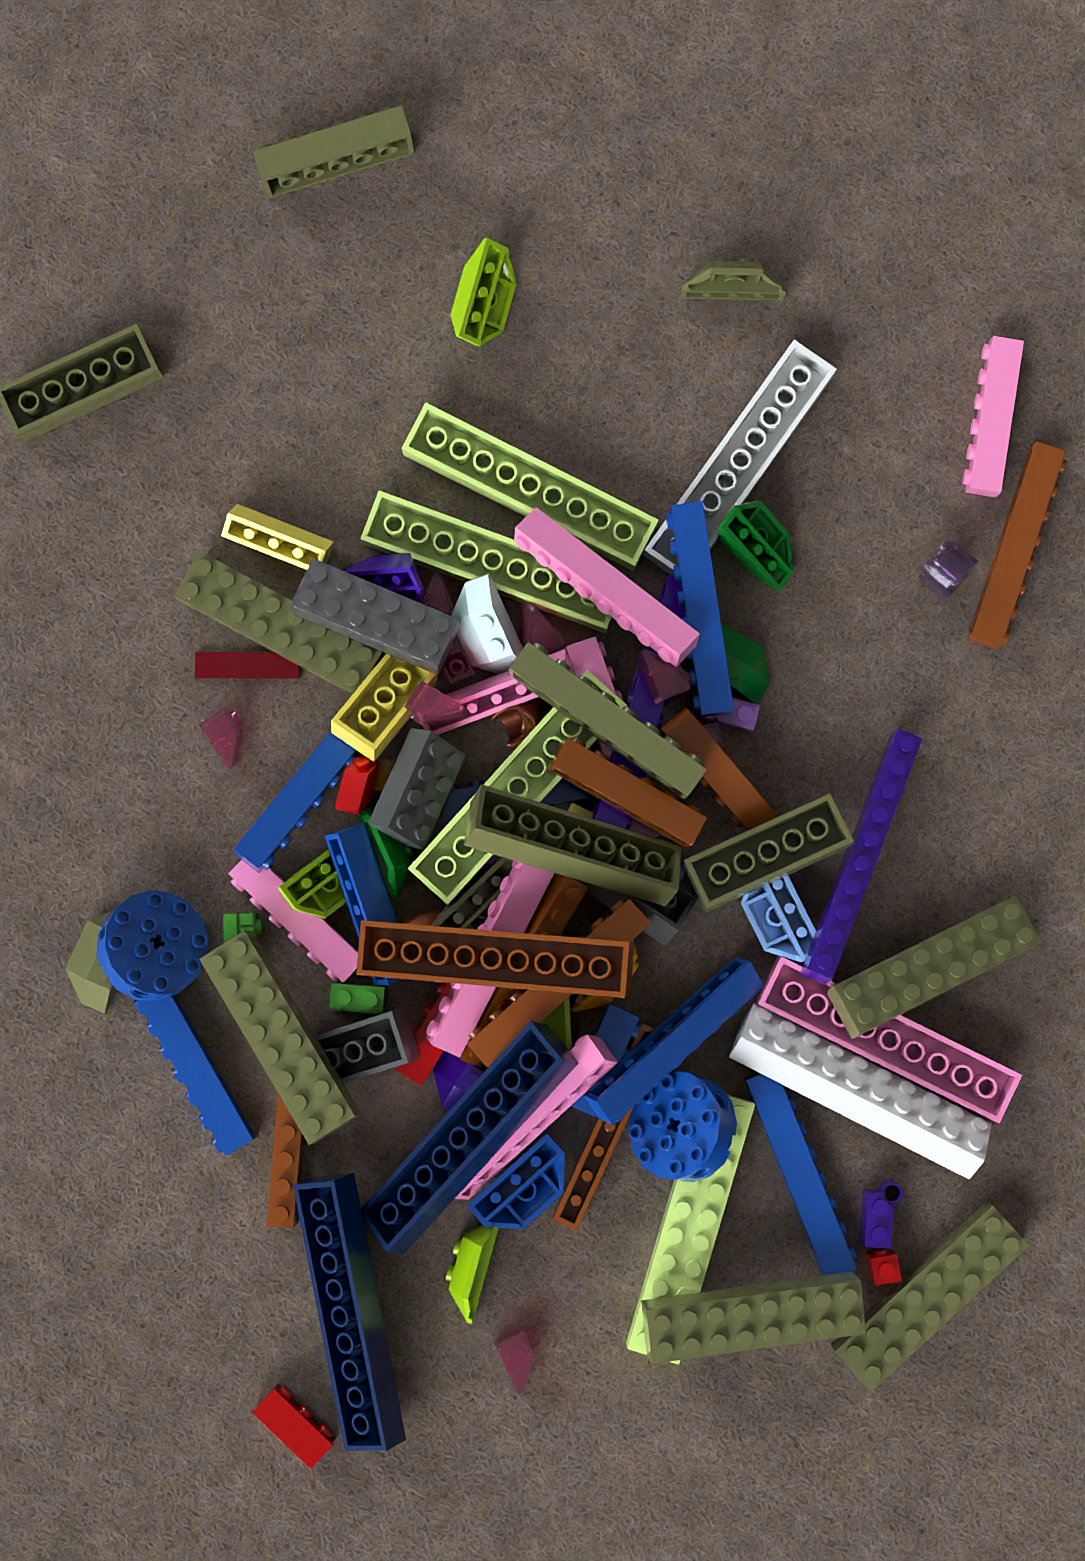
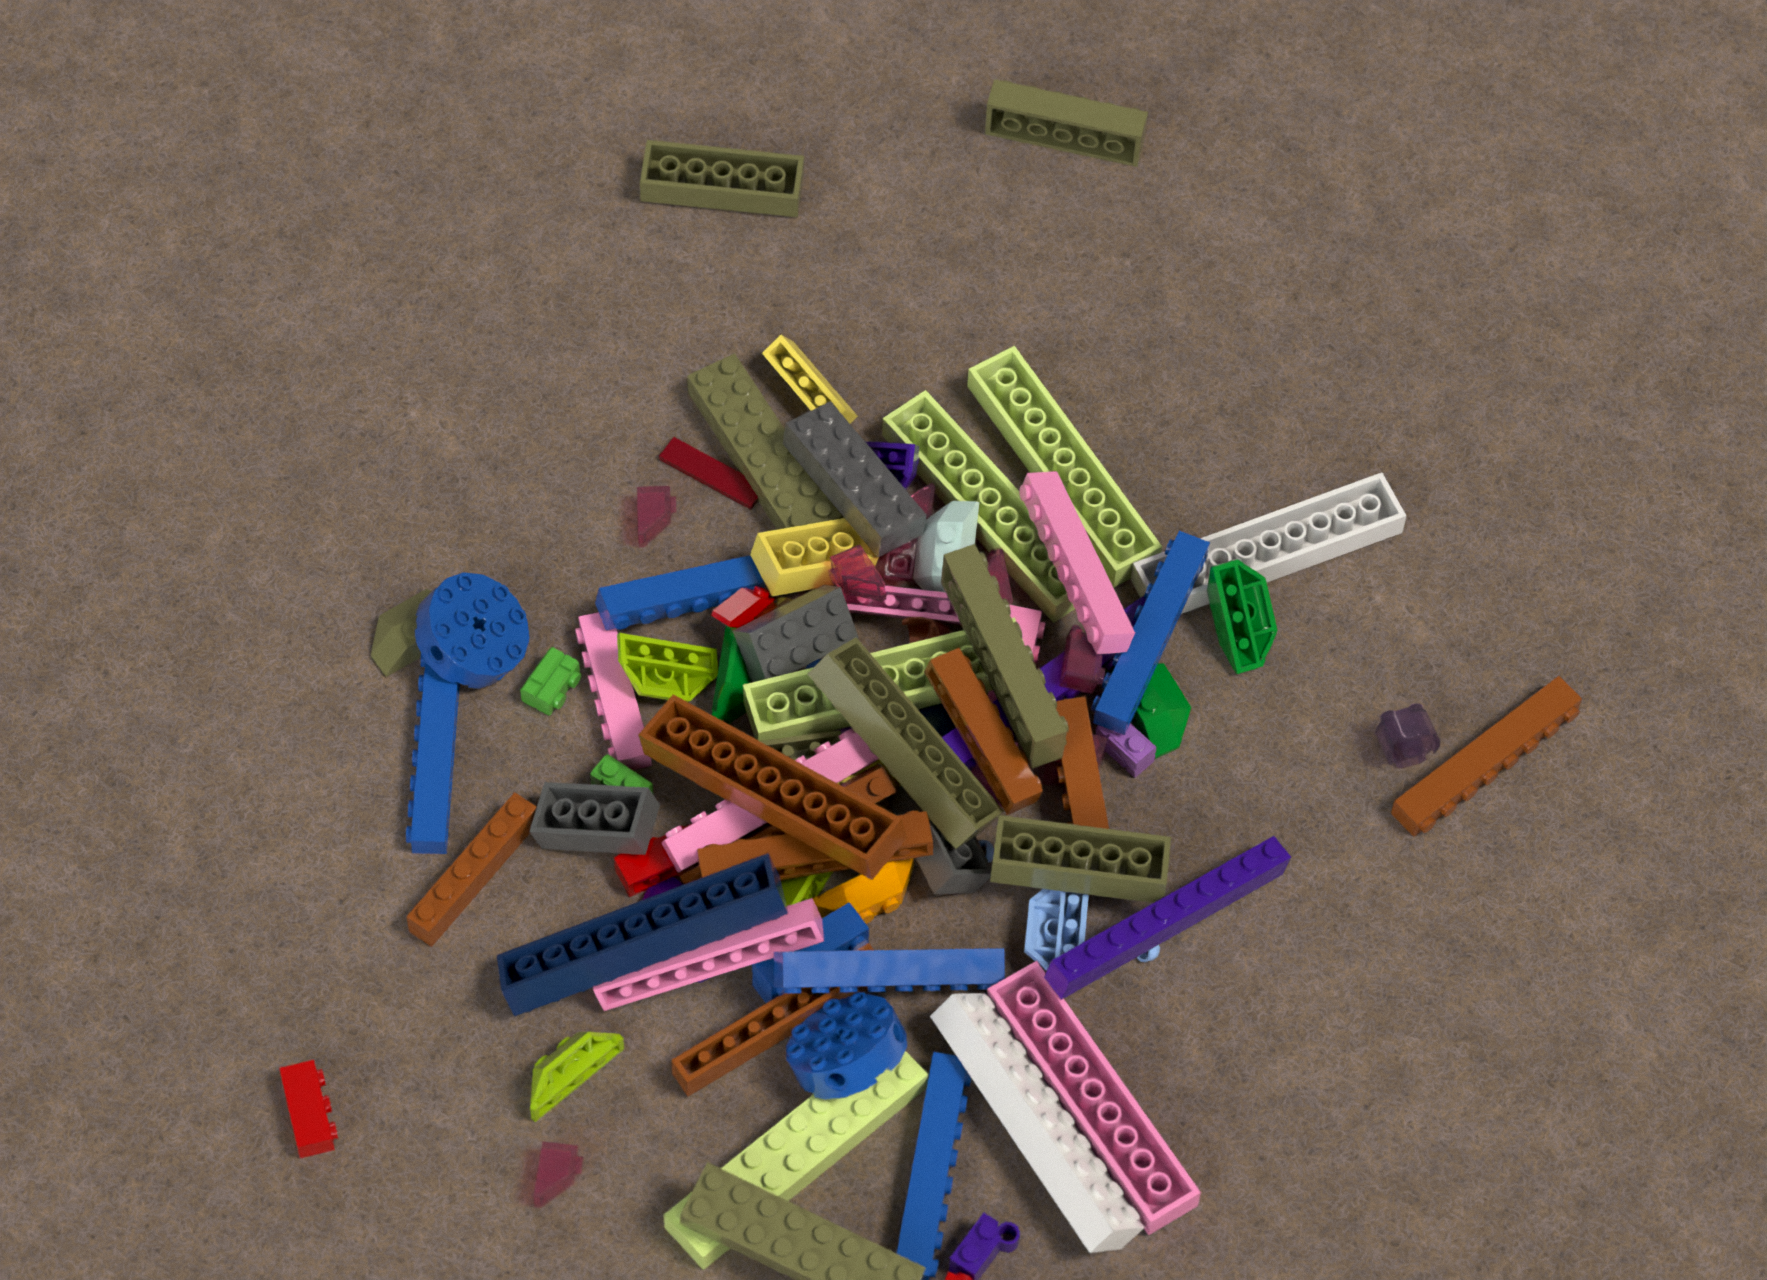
camera: 30 degrees right, 25 degrees down
(280, 1037) = (532, 761): olive brick -> none
(349, 1313) = (429, 1032): dark blue brick -> none
(361, 880) = (694, 682): blue brick -> none
(484, 294) = (1126, 298): lime wedge -> none
(523, 1188) = (662, 1020): blue wedge -> none
(734, 280) = (1357, 406): olive wedge -> none
(933, 967) = (1176, 1049): olive brick -> none
(994, 416) = (1532, 641): bright pink brick -> none

